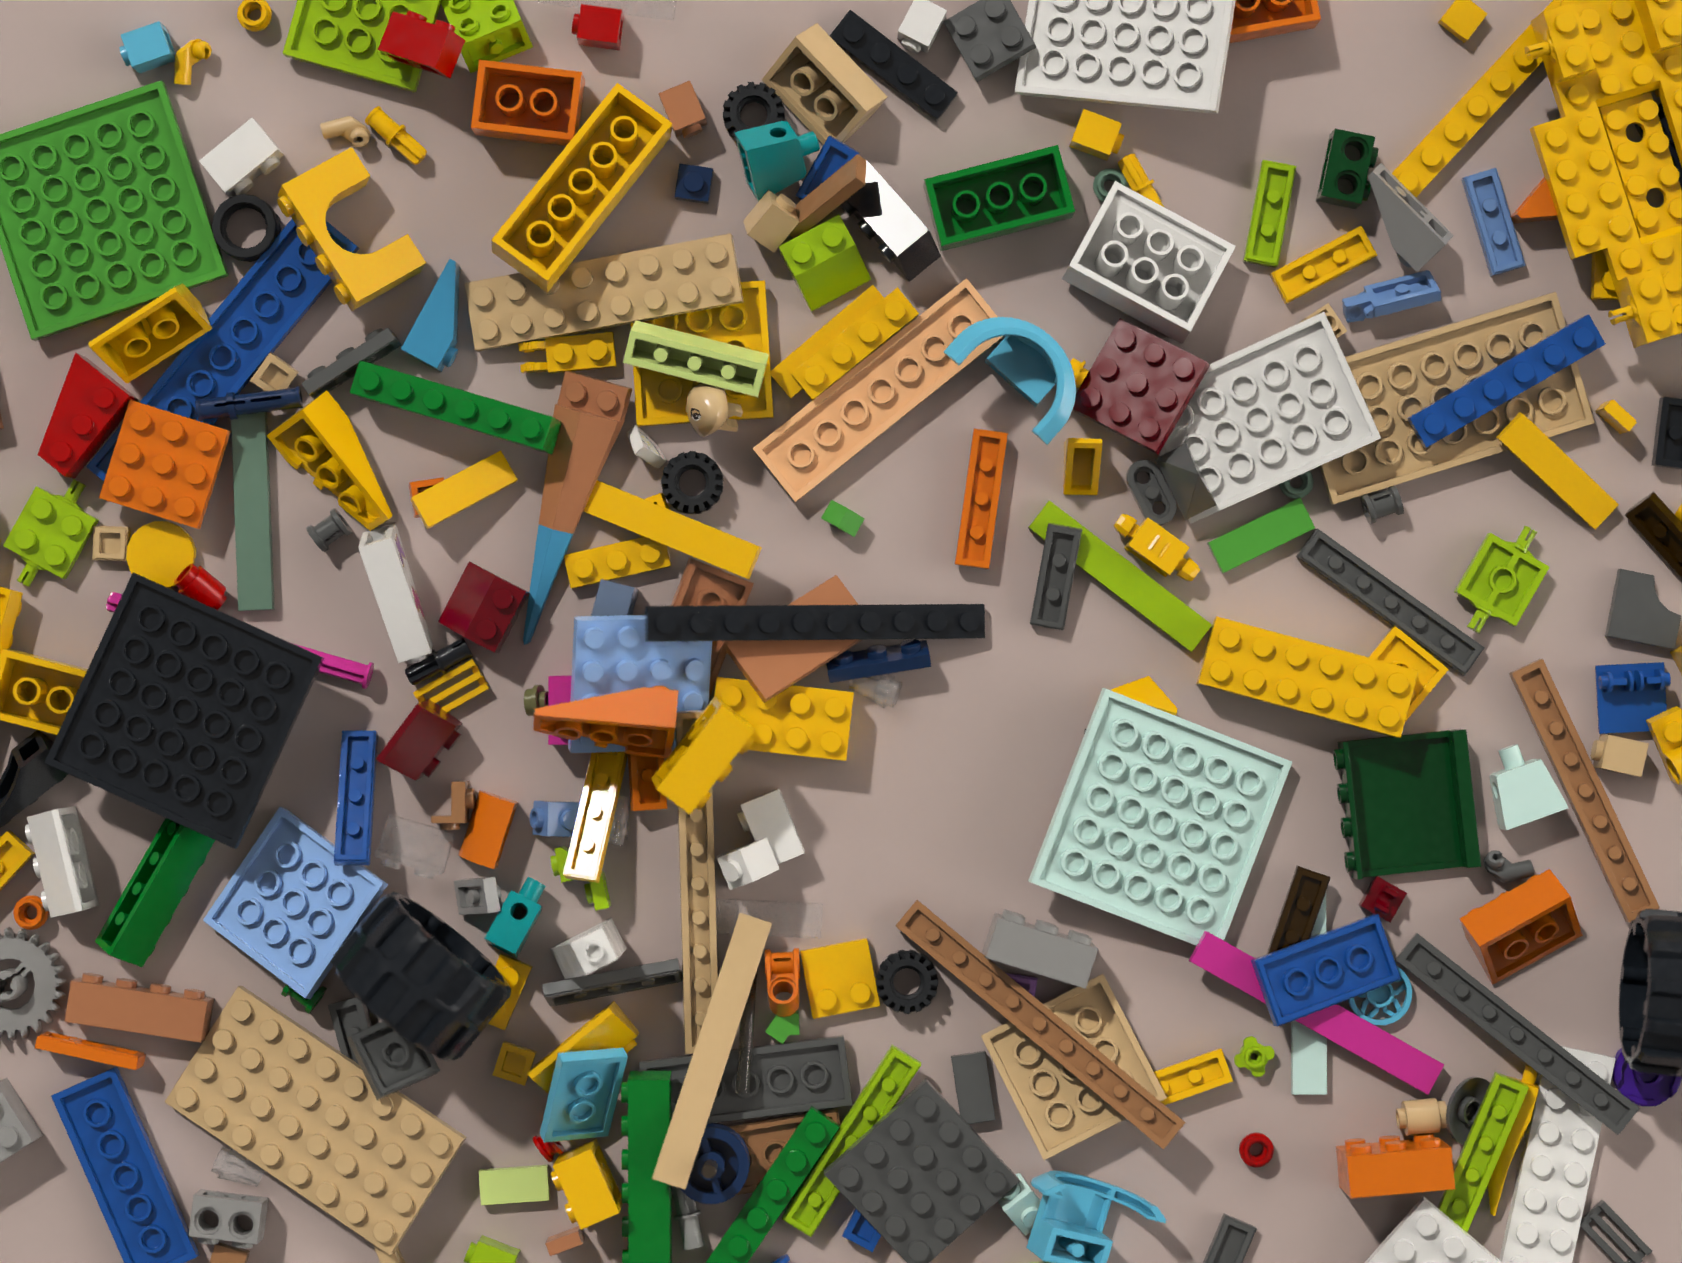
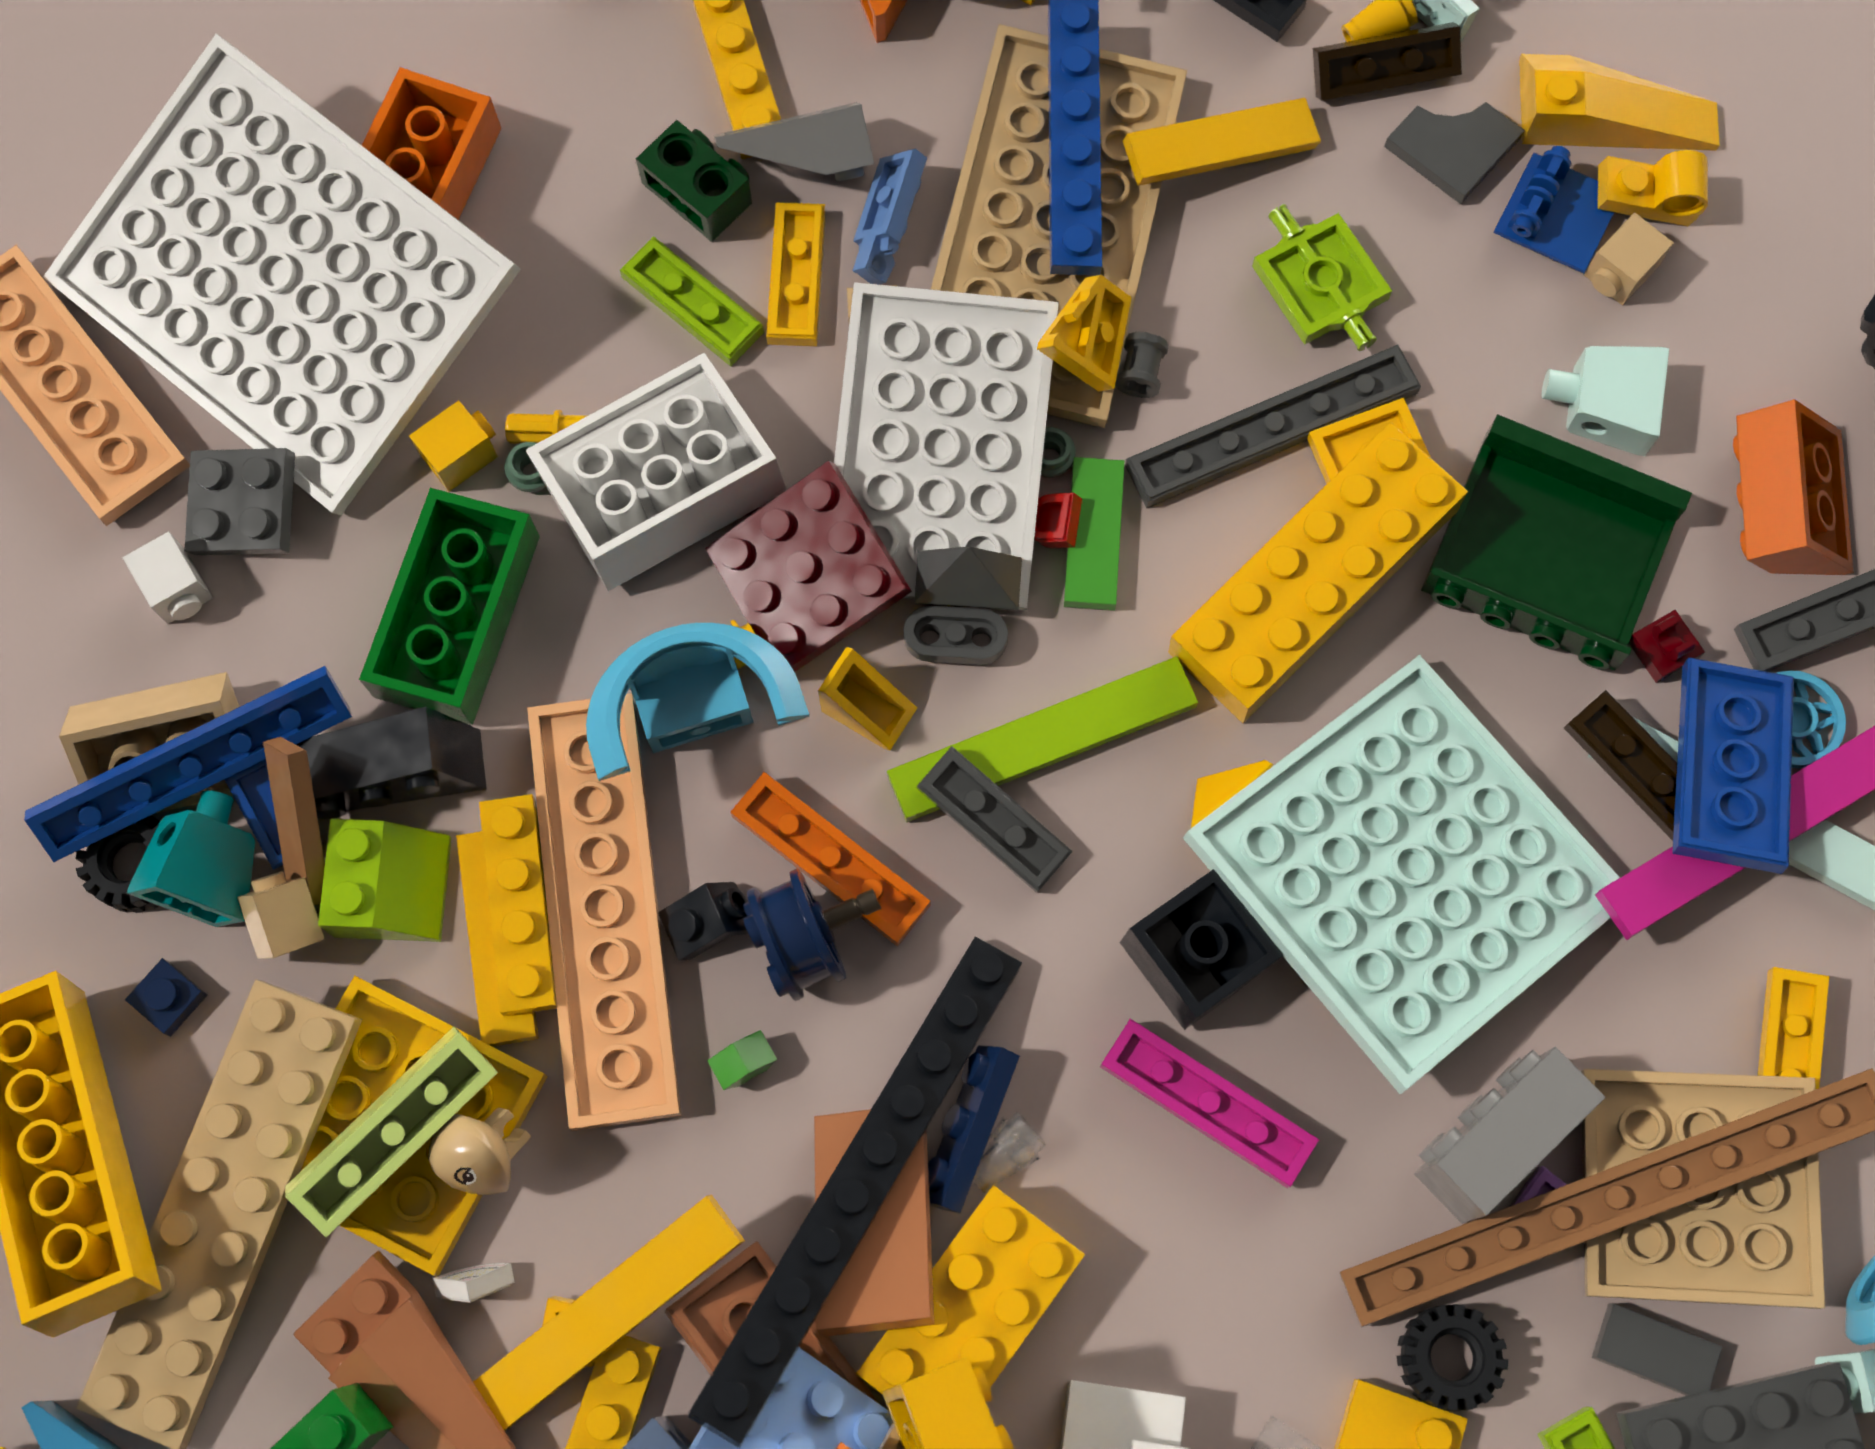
camera: 60 degrees left, 15 degrees down
(572, 353) = (275, 1312): yellow hinge -> none
(683, 110) = (59, 946): nougat brick -> none
(686, 462) = (529, 1238): black tyre -> none
(823, 116) = (186, 764): none -> blue plate
(893, 65) = (198, 644): black plate -> none
(908, 451) = (704, 918): none -> black bracket
(927, 509) = (800, 932): none -> dark blue wheel
(966, 782) = (1209, 1103): none -> dark pink plate
(1047, 731) = (1199, 948): none -> black slope
(1156, 547) = (1032, 667): yellow piece -> none
(1250, 1047) = (1793, 941): lime plate -> none
(1254, 510) = (1058, 520): none -> red tile
(1377, 465) = (1090, 332): none -> yellow wing
(1493, 222) = (869, 58): medium blue tile -> none
(1505, 870) = (1709, 473): dark grey arm -> none
(1583, 789) = (1630, 321): medium nougat plate -> none
(1616, 416) = (1194, 43): yellow tile -> none

